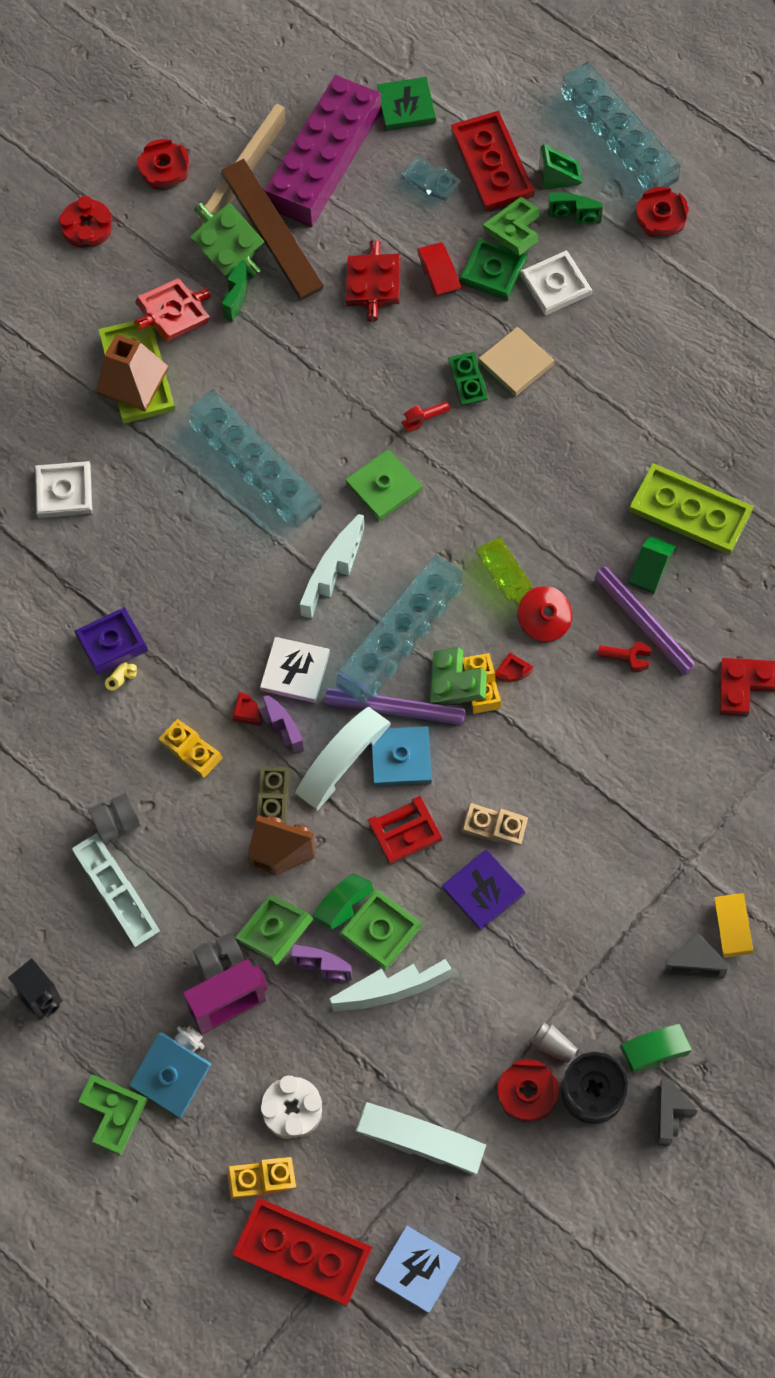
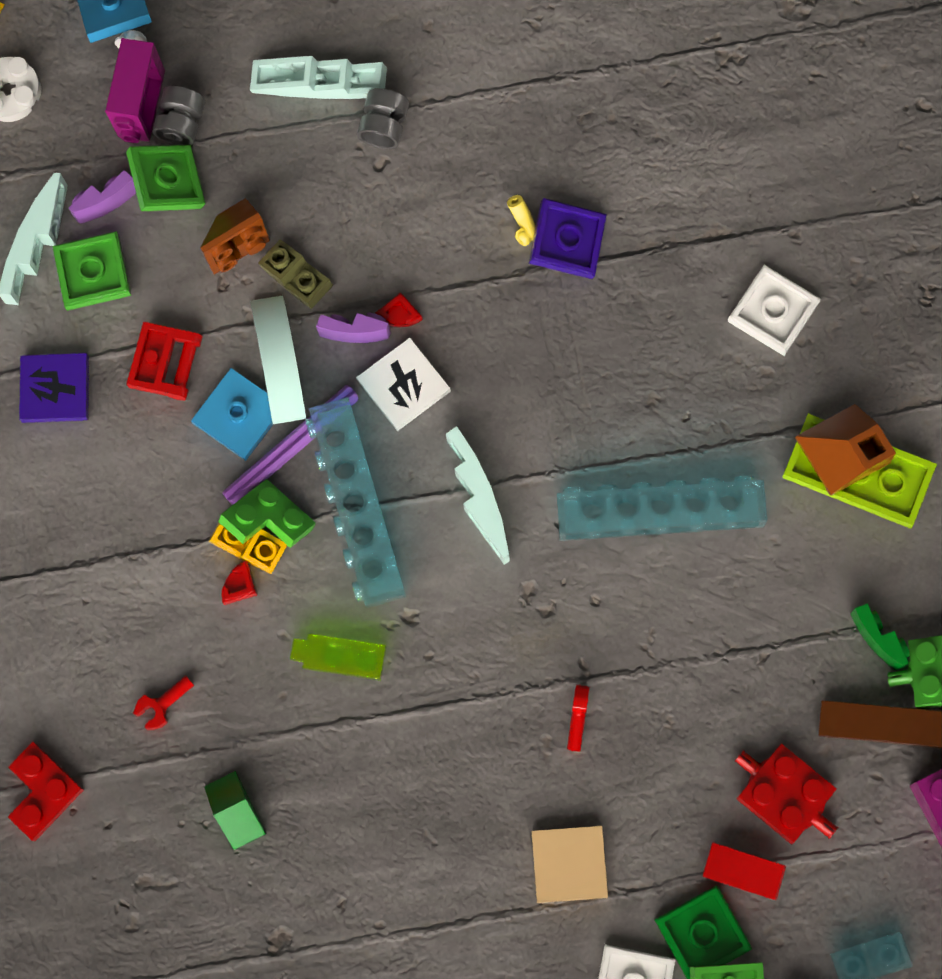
camera: 135 degrees right, 10 degrees up
(172, 309) = (902, 552): plate -> none
(190, 749) = (401, 236): yellow slope -> none
(338, 903) = (143, 254): green slope -> none
(384, 485) = (533, 616): bright green plate -> none
(467, 378) = (587, 796): green slope -> none
(493, 825) = (104, 445): tan slope -> none
(535, 622) = (278, 661): red dish -> none
(644, 620) = (182, 749): medium lavender axle -> none
(691, 509) = (256, 897): lime plate -> none

